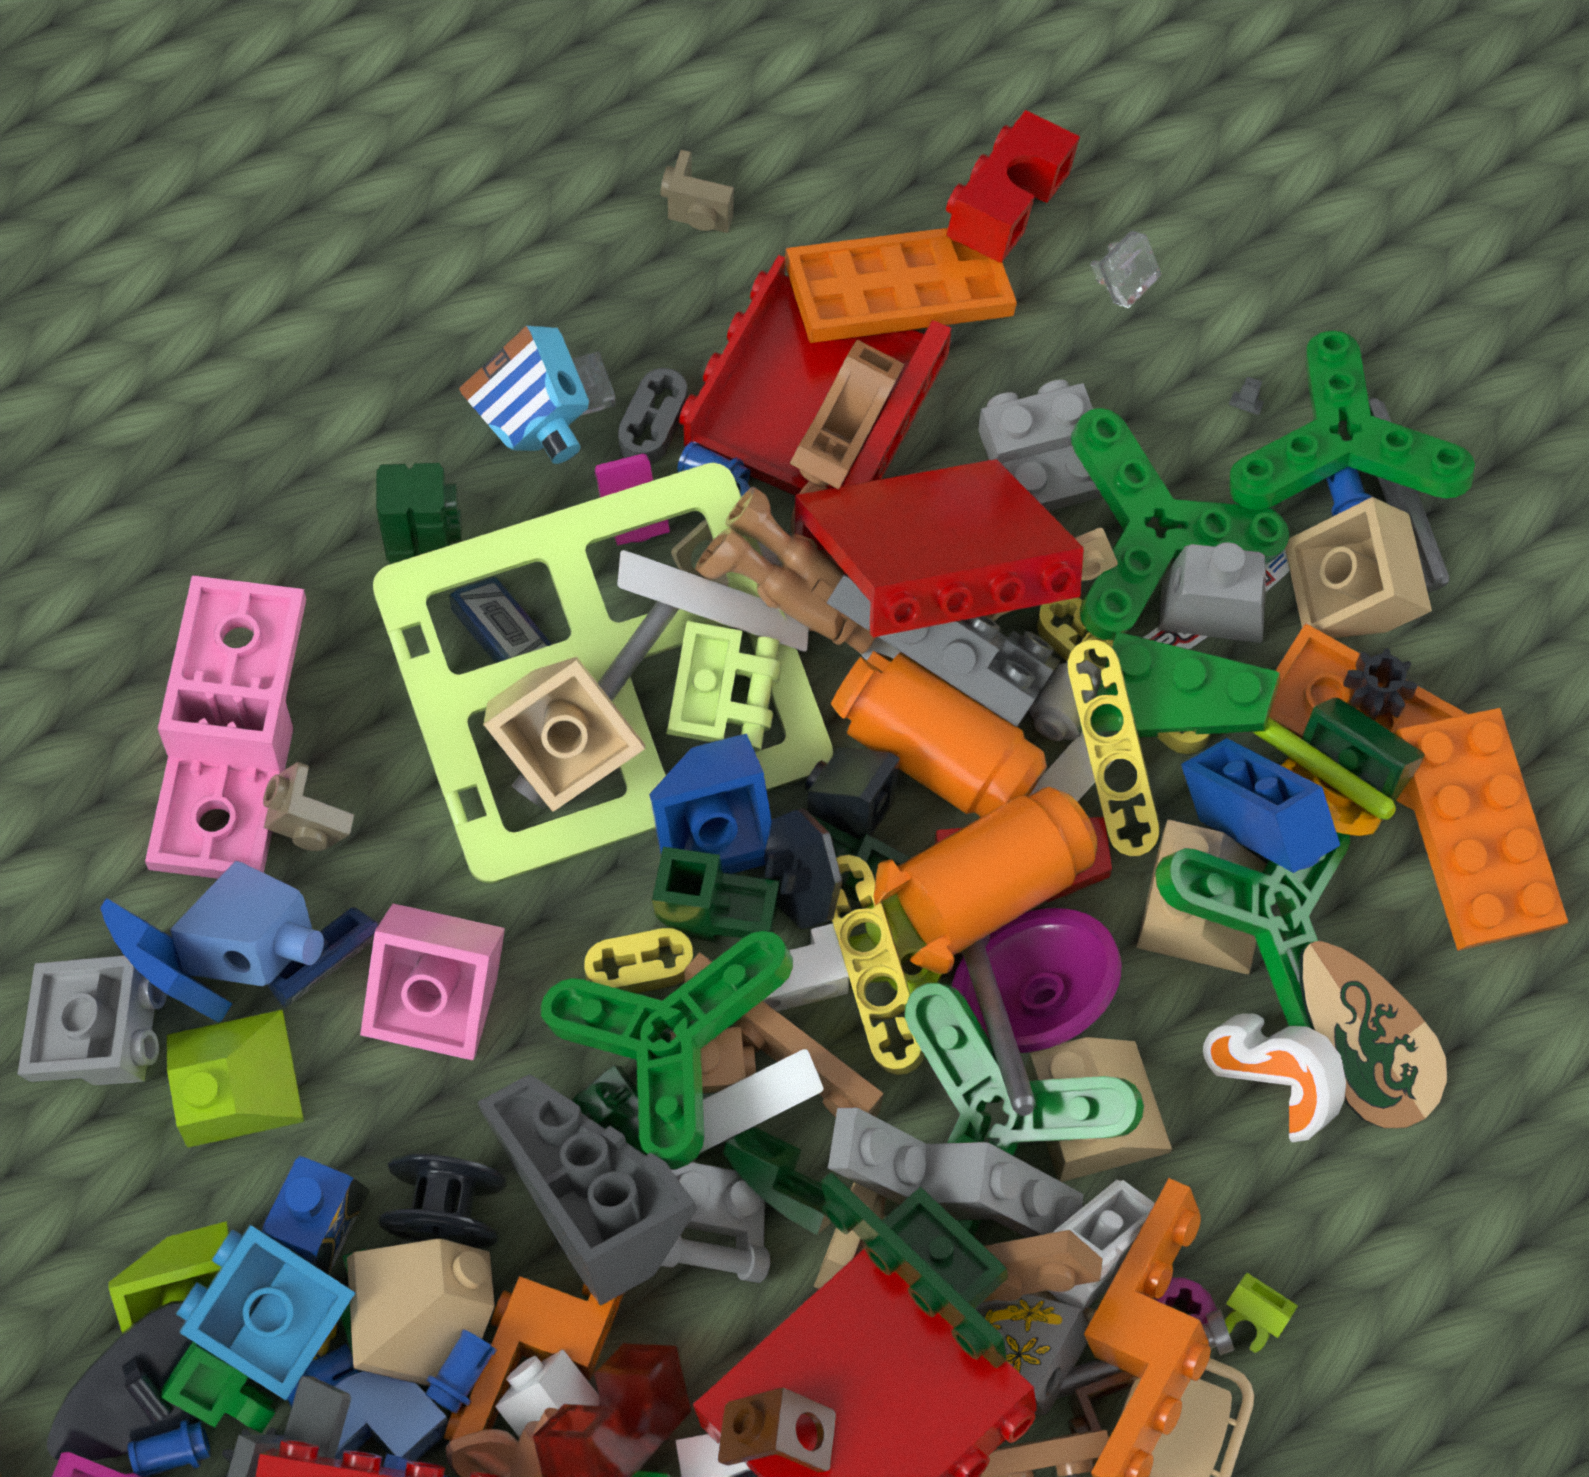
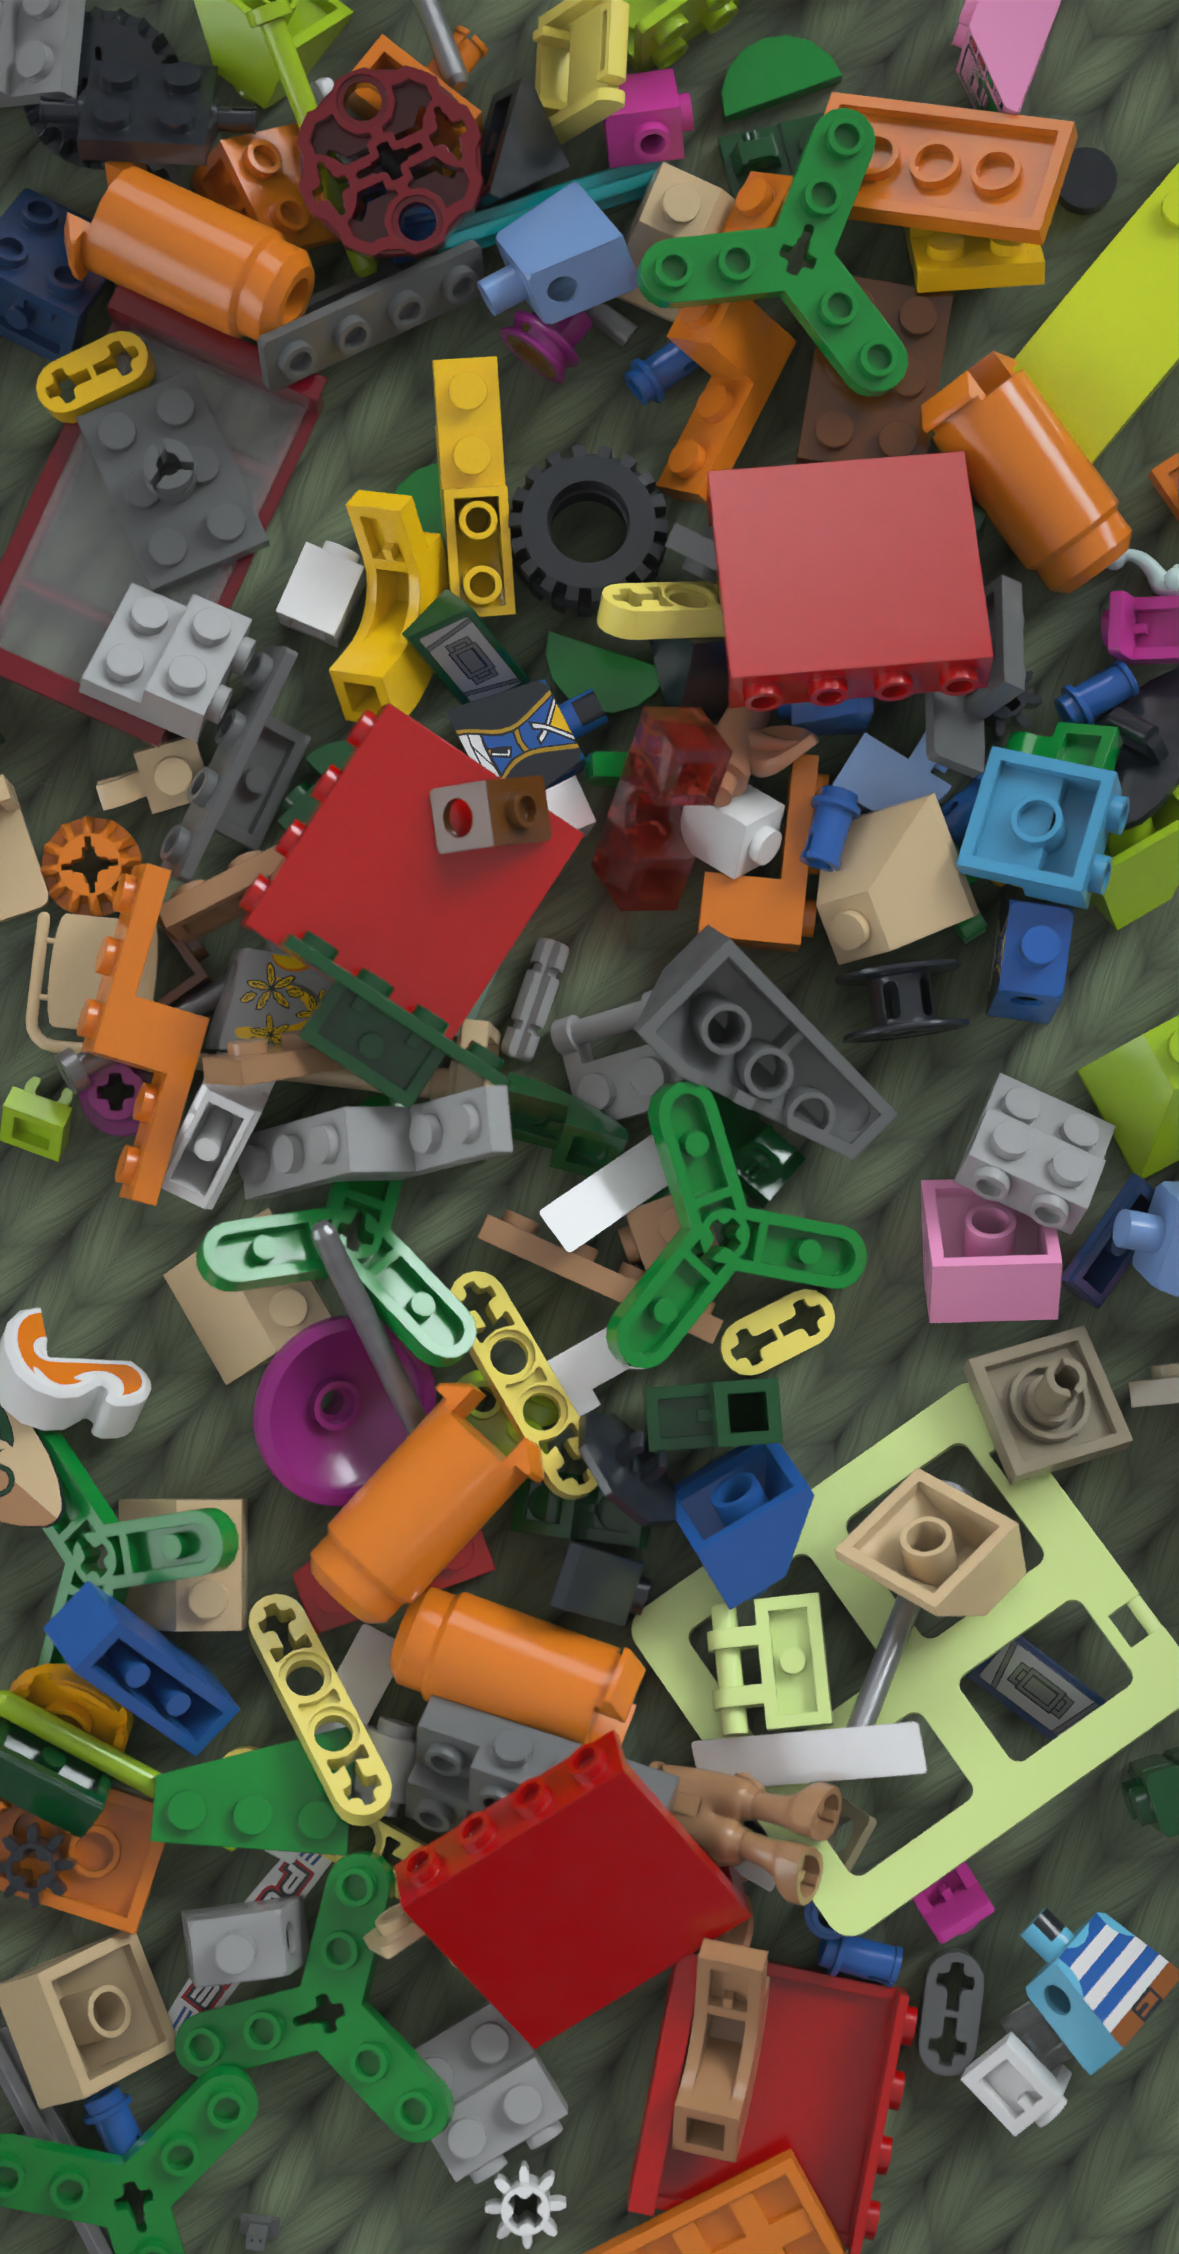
camera: 165 degrees right, 20 degrees up
(365, 1043) = (1035, 1154): none -> light grey plate
(424, 836) = (1047, 1404): none -> dark tan plate
(617, 343) = (1017, 2085): none -> white bracket
(776, 1301) = (535, 999): none -> light grey axle
(1030, 359) = (527, 2222): none -> white gear

